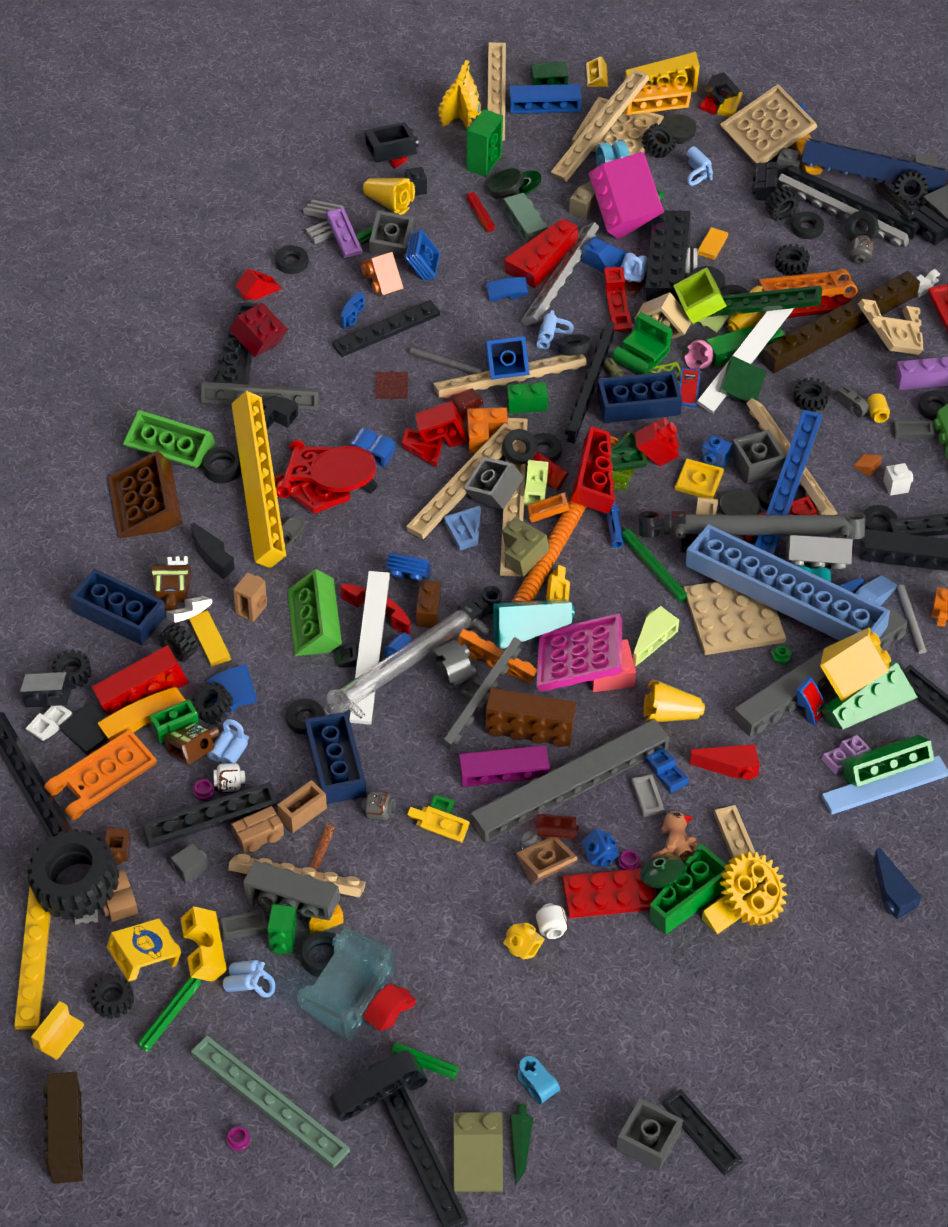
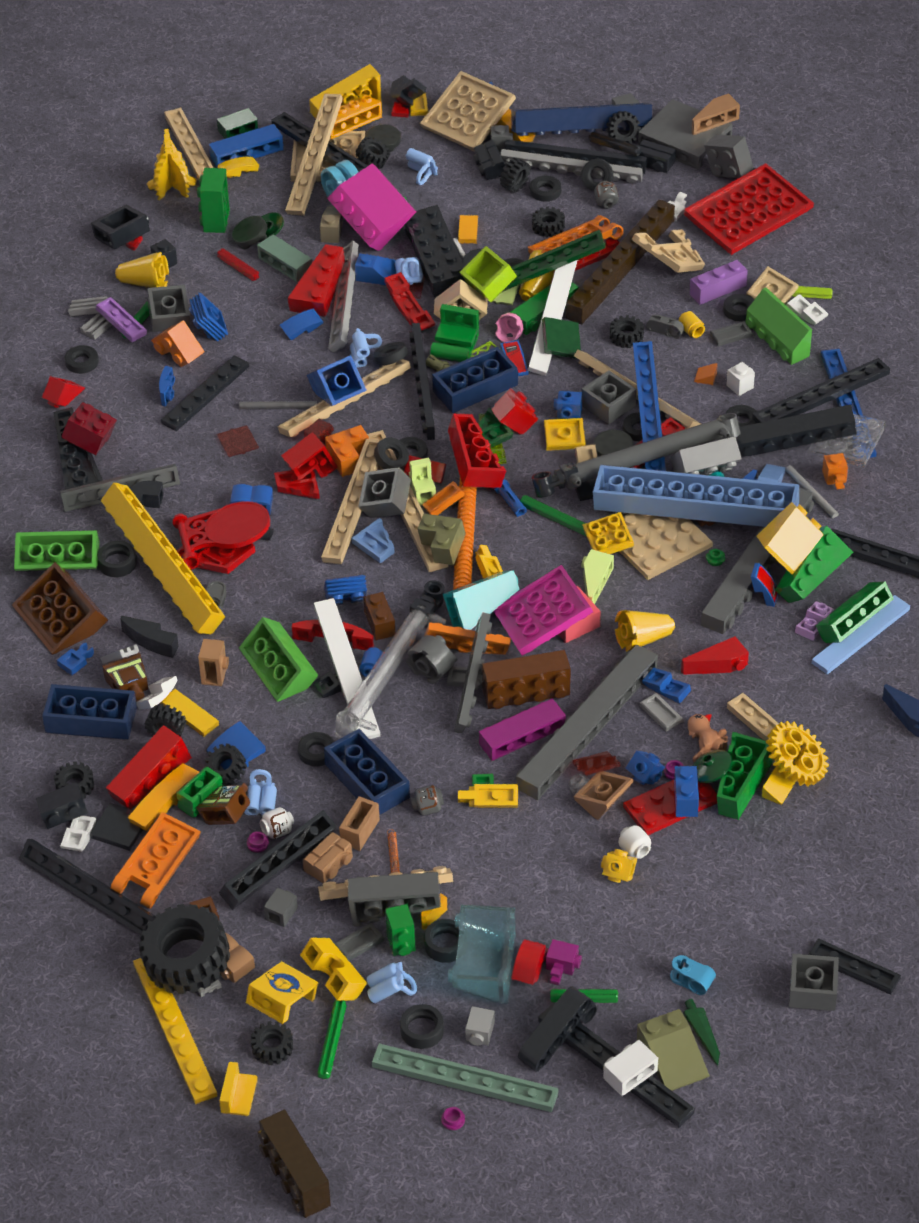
camera: 20 degrees left, 5 degrees down
(133, 551) = (75, 660): none -> blue plate
(258, 1049) = (422, 1041): none -> black tyre
(309, 1054) = (480, 1026): none -> light grey brick
(420, 1015) = (561, 959): none -> magenta brick
(424, 1154) = (630, 1067): none -> white brick
(524, 115) = (237, 165): none -> yellow slope
(527, 398) = (373, 411): green brick -> none
(597, 73) = (277, 107): yellow slope -> none
(619, 130) = (302, 133): none -> black plate
(623, 888) = (686, 791): none -> blue brick
(686, 596) = (608, 534): none -> yellow tile

